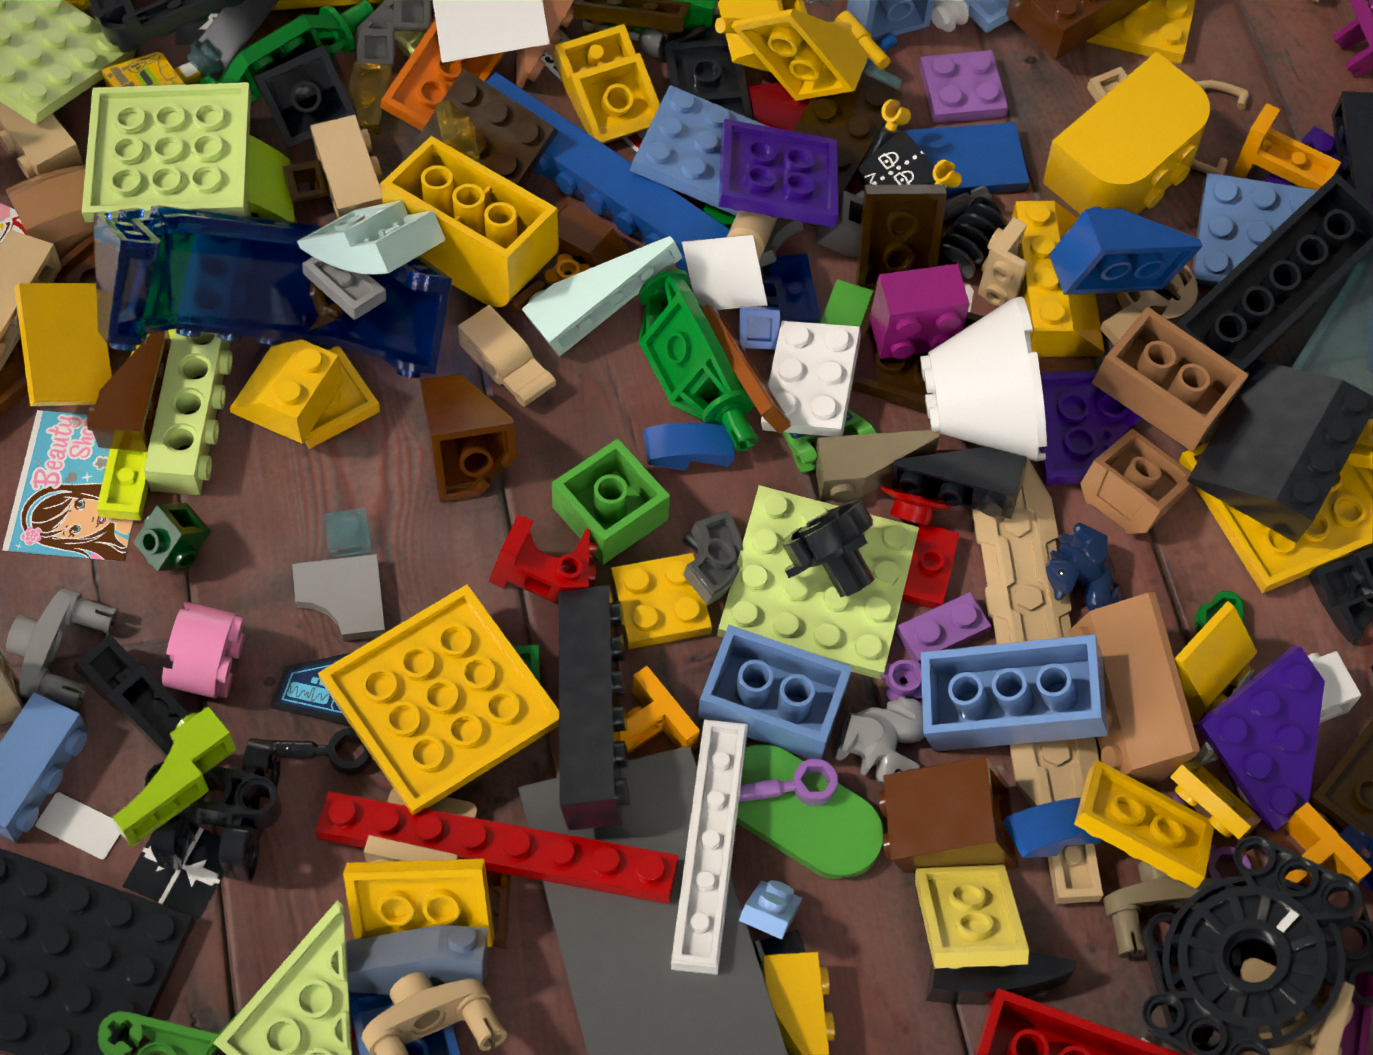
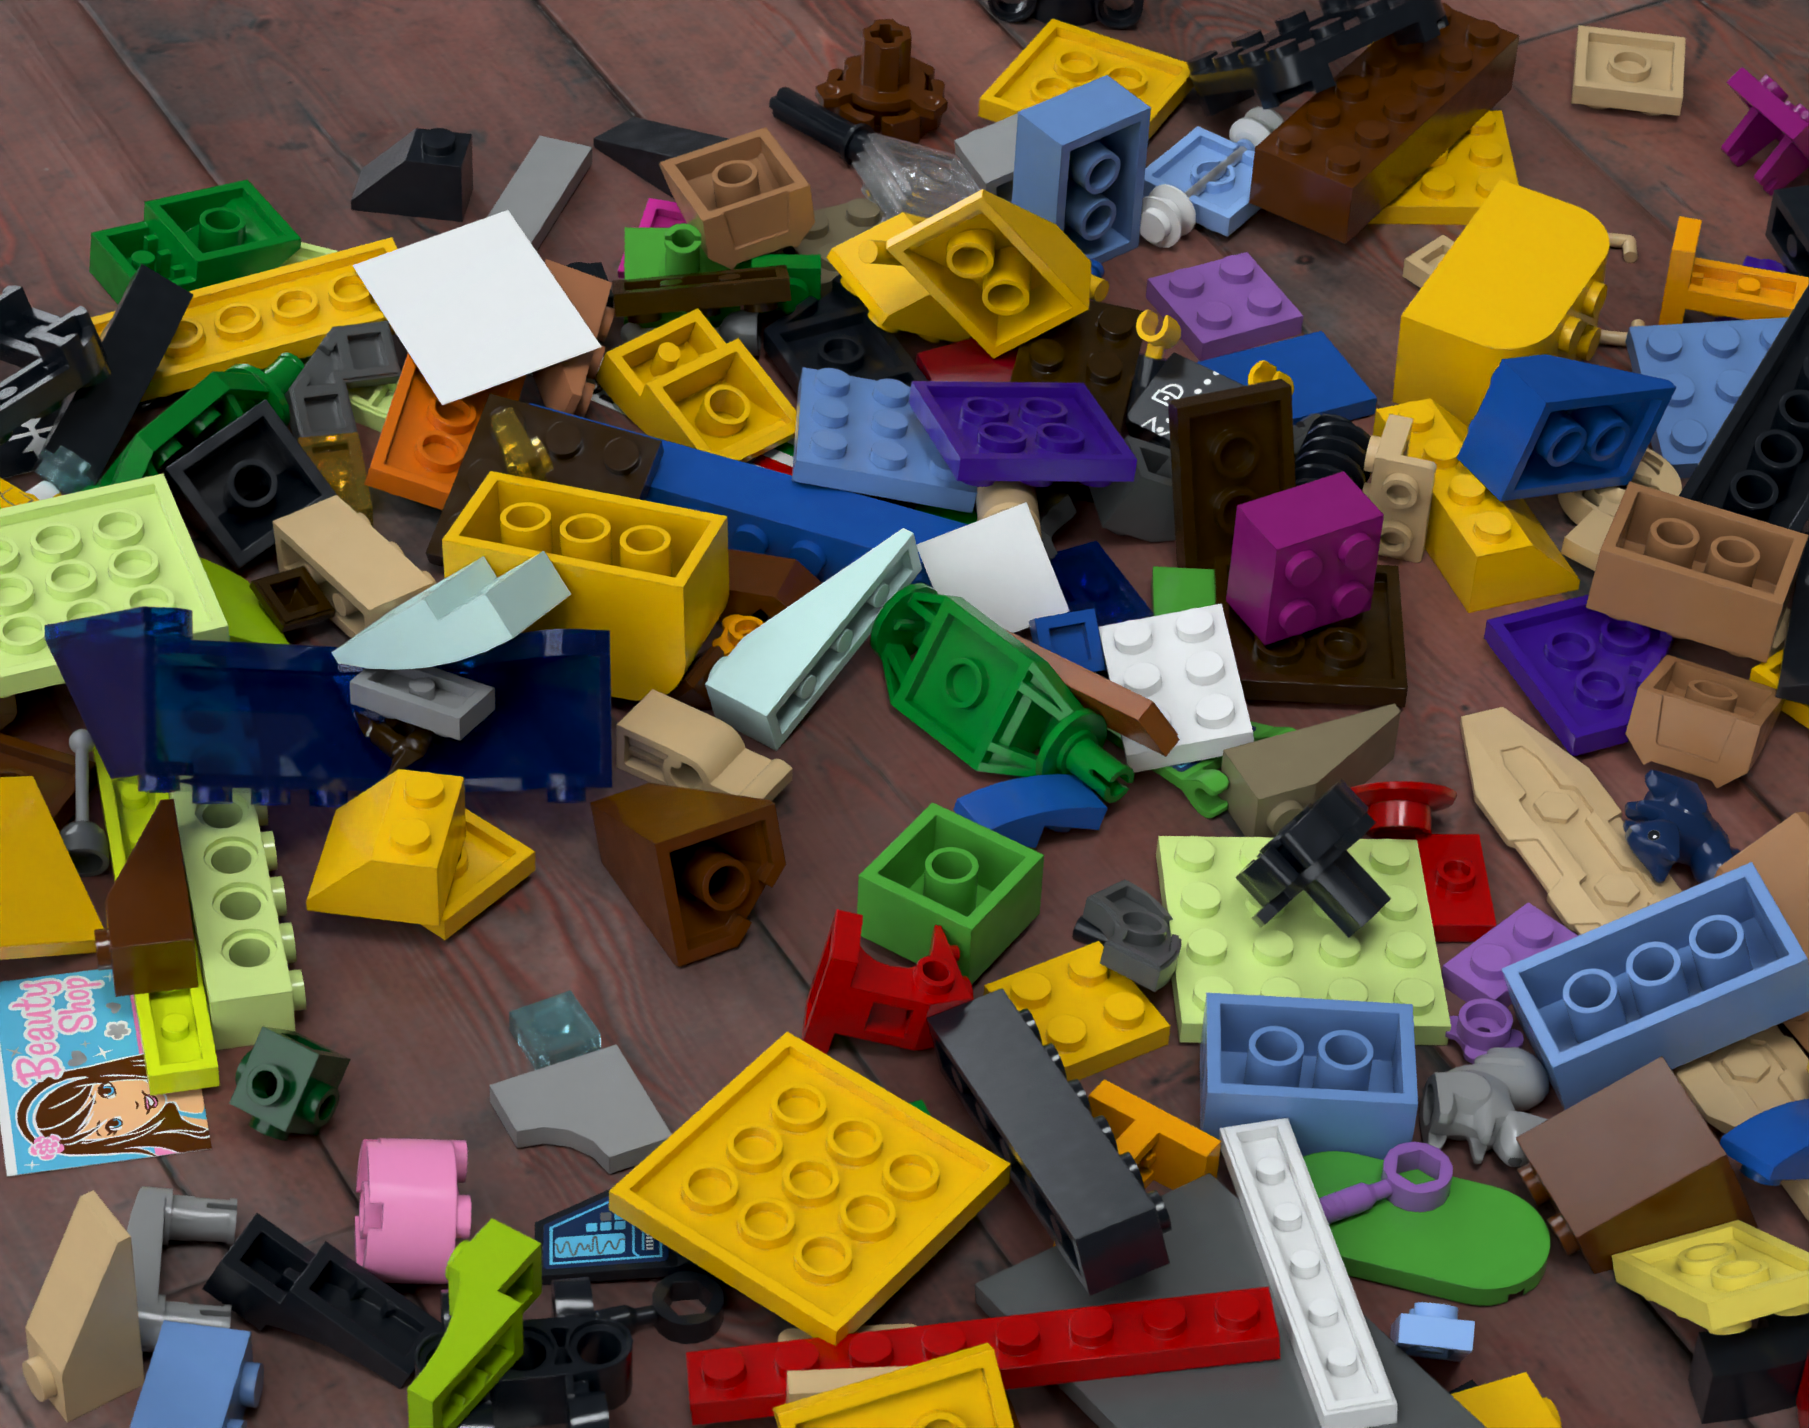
camera: 15 degrees left, 20 degrees down
(970, 478) = (1478, 751): black slope -> none
(989, 384) = (1459, 615): white cone -> none

